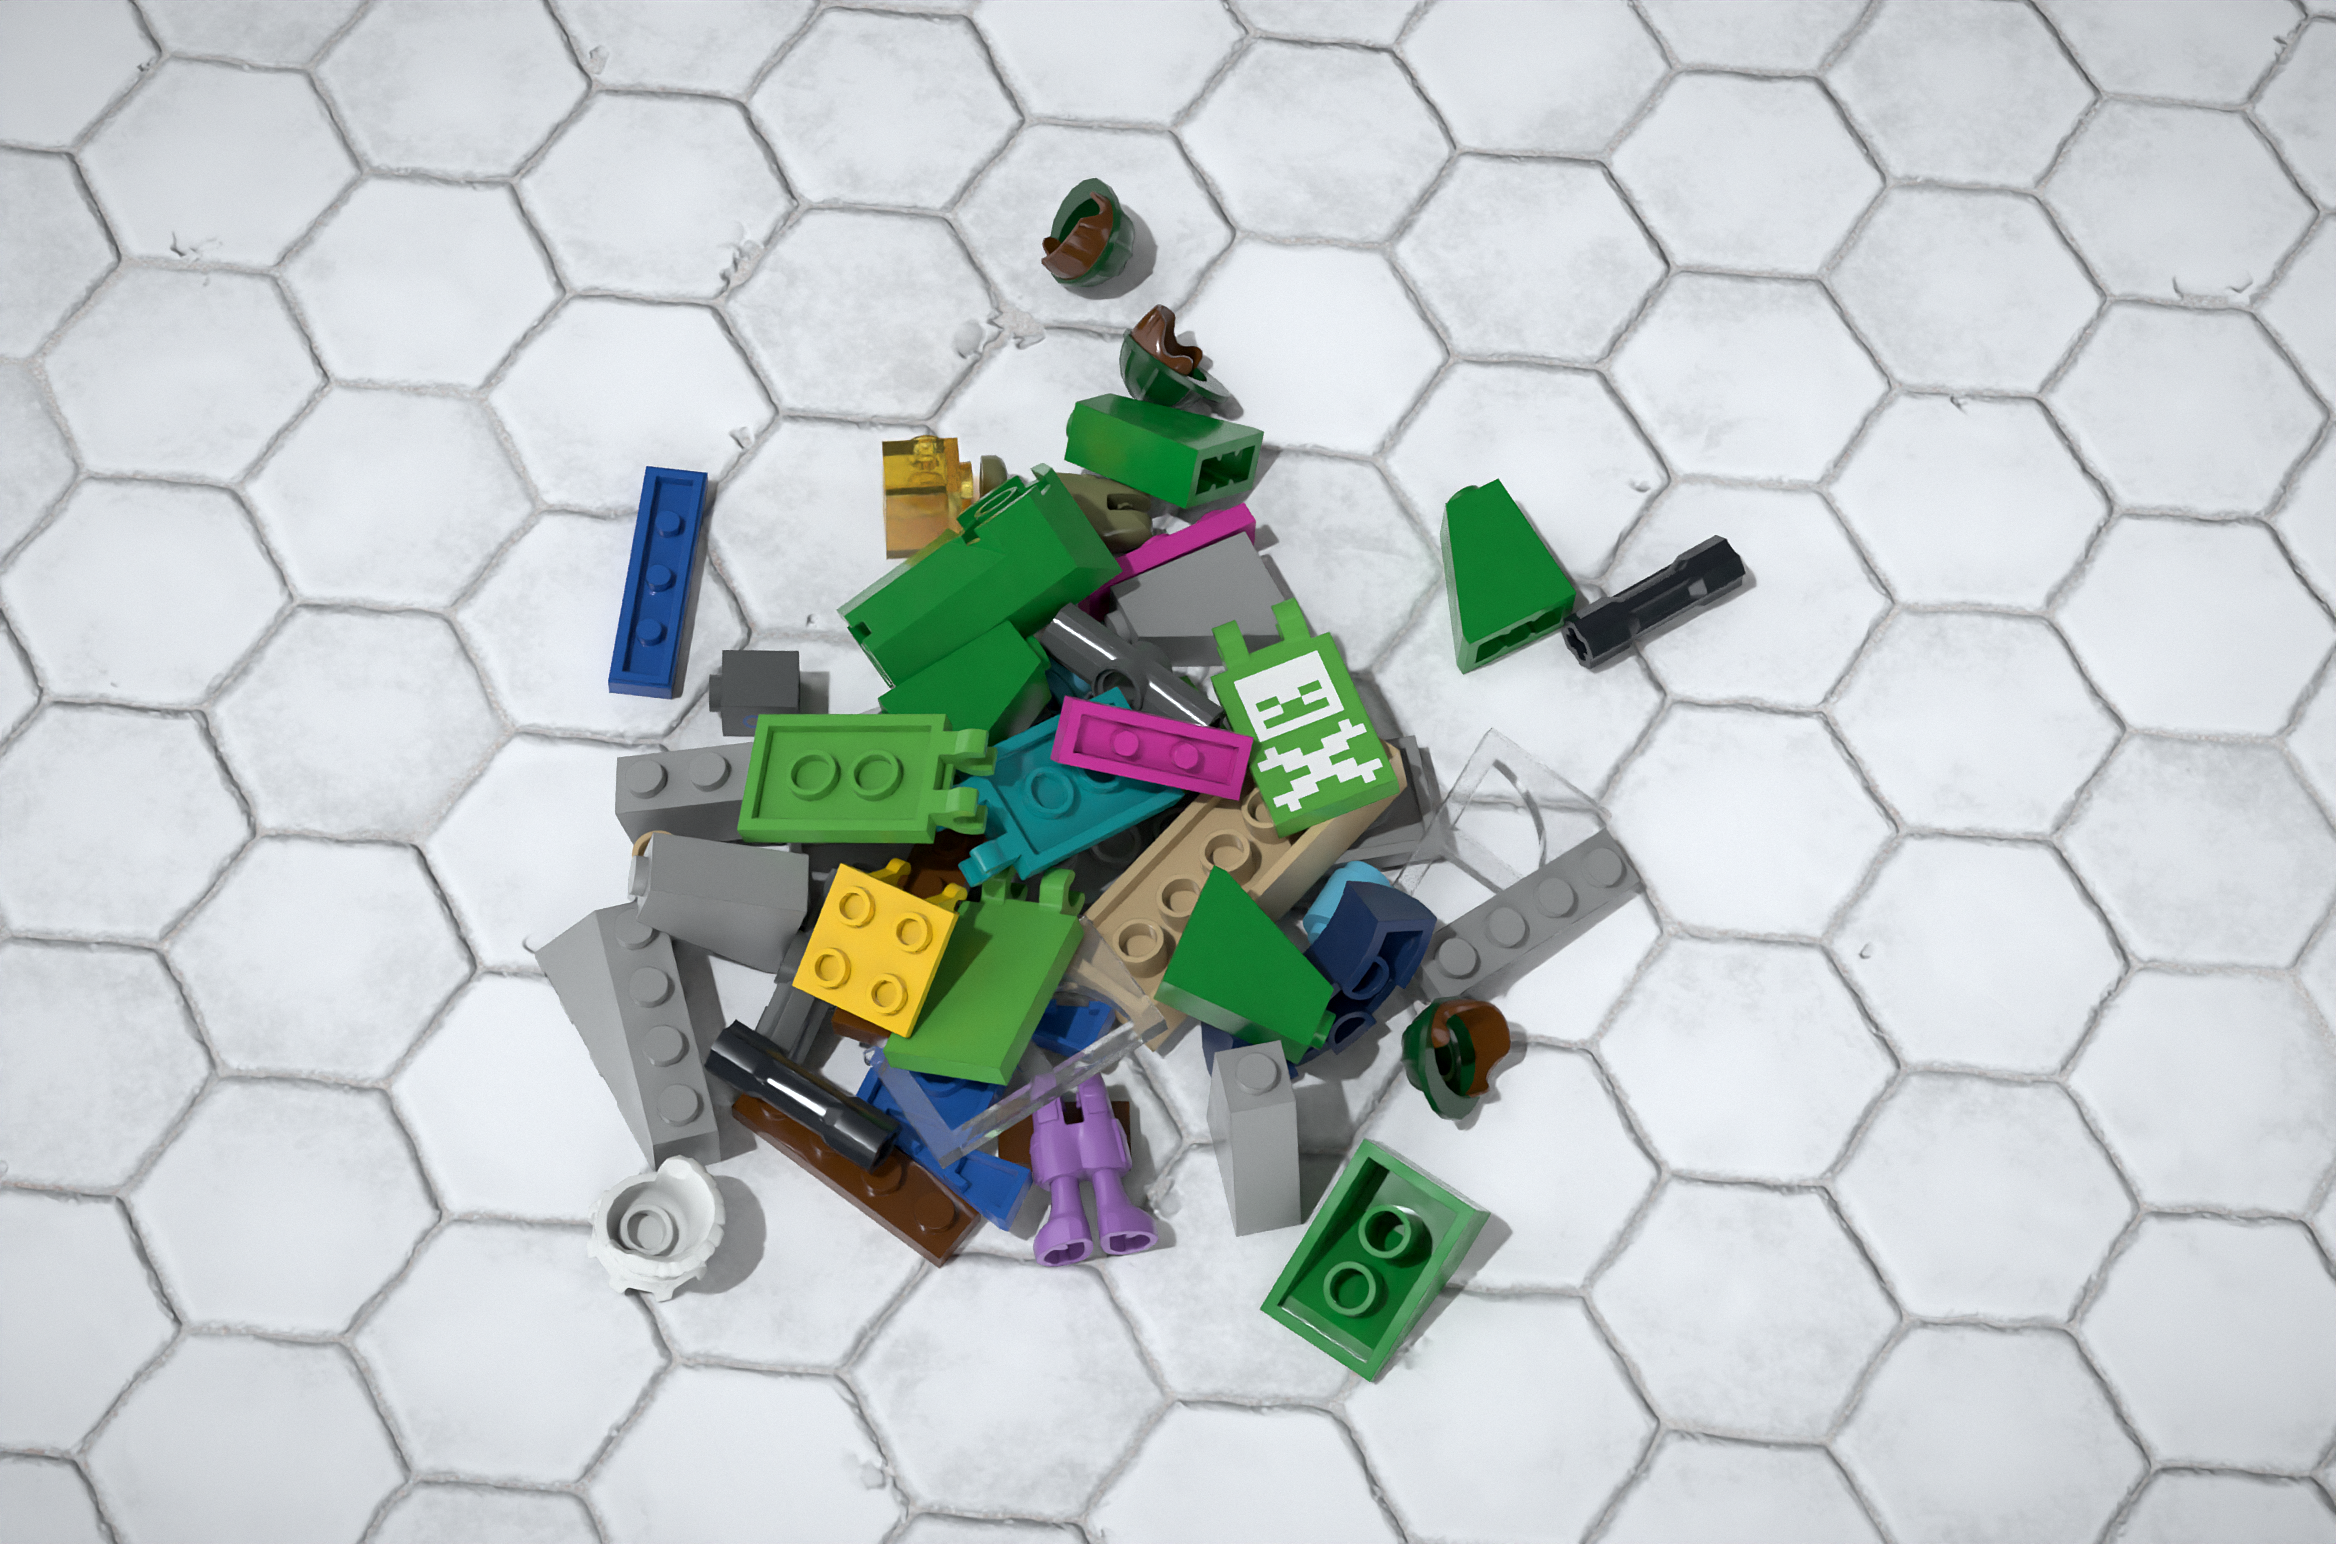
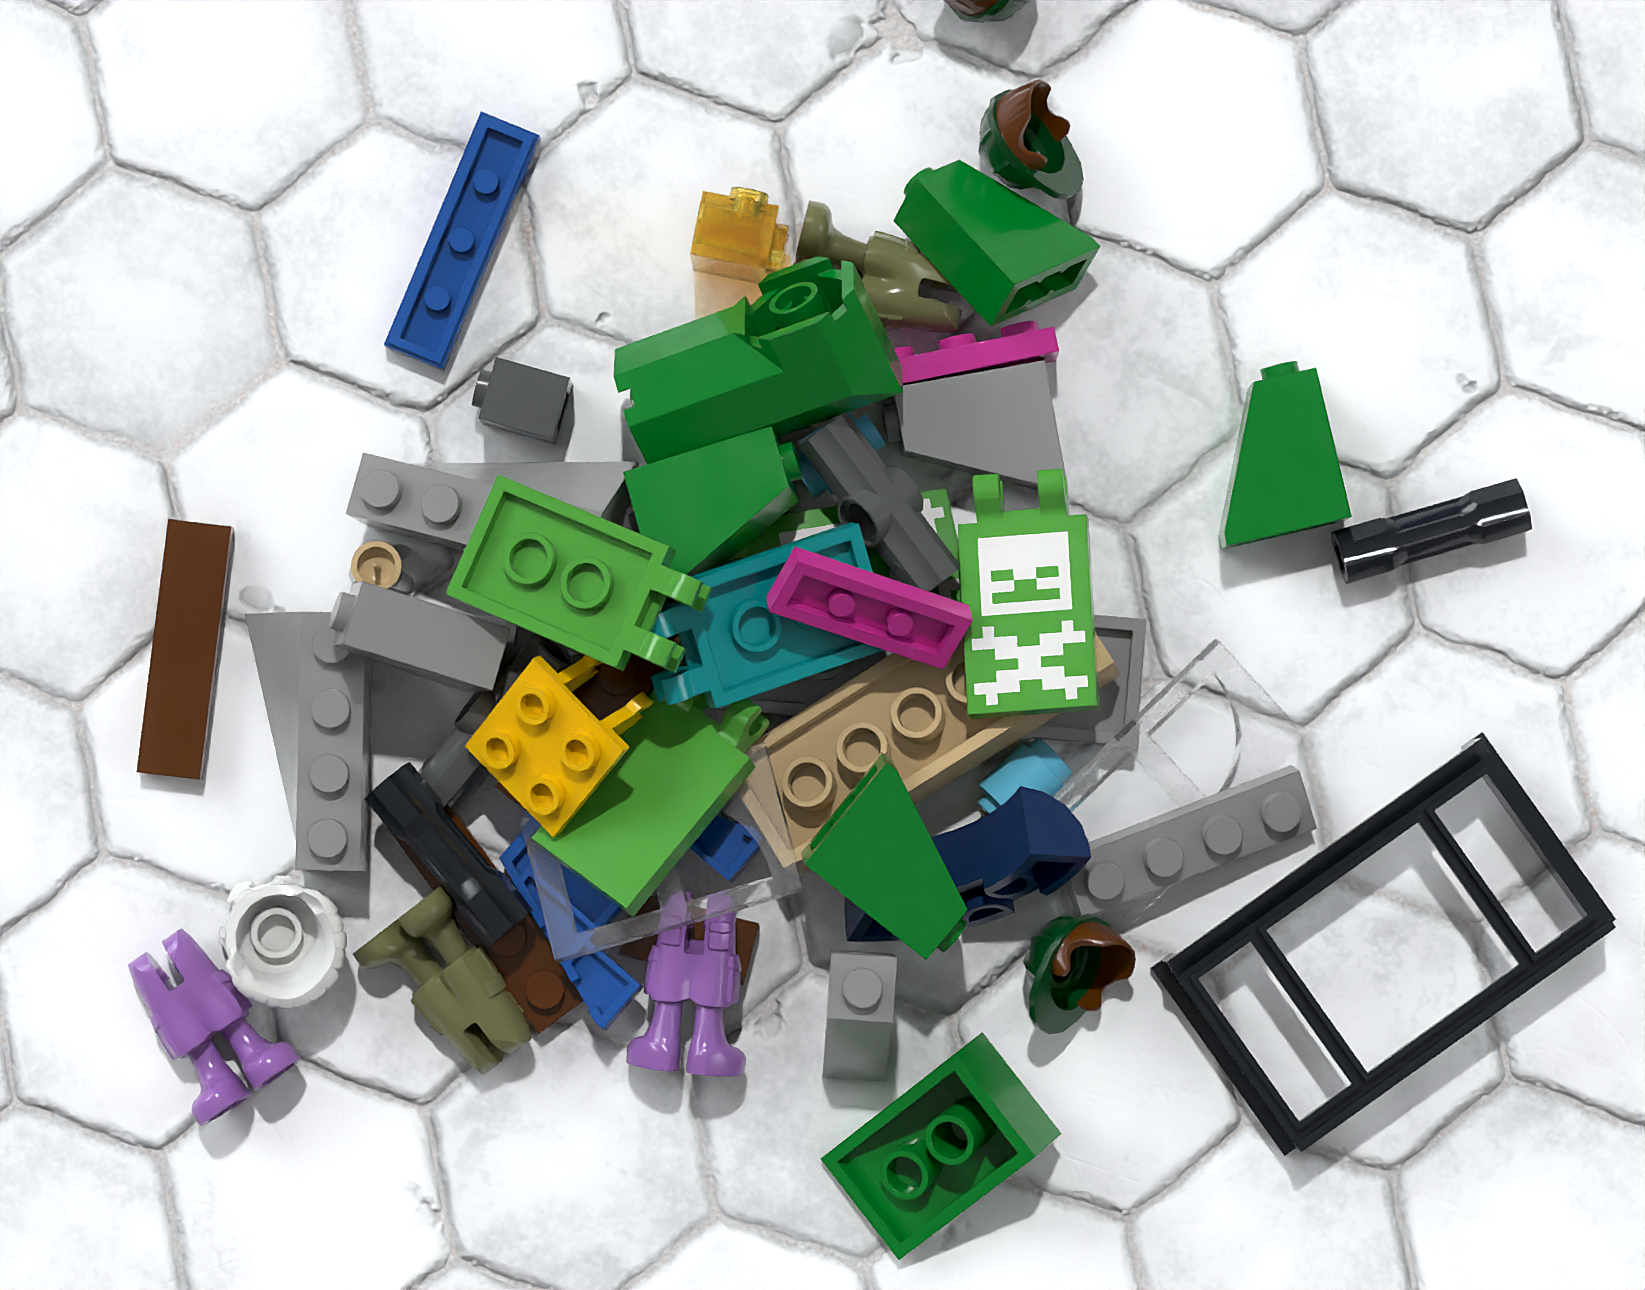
camera: 15 degrees right, 25 degrees up
(483, 1000) = (185, 649): none -> reddish brown tile
(588, 1320) = (196, 1011): none -> medium lavender piece
(853, 1225) = (465, 998): none -> olive piece
(1639, 1099) = (1417, 804): none -> black piece

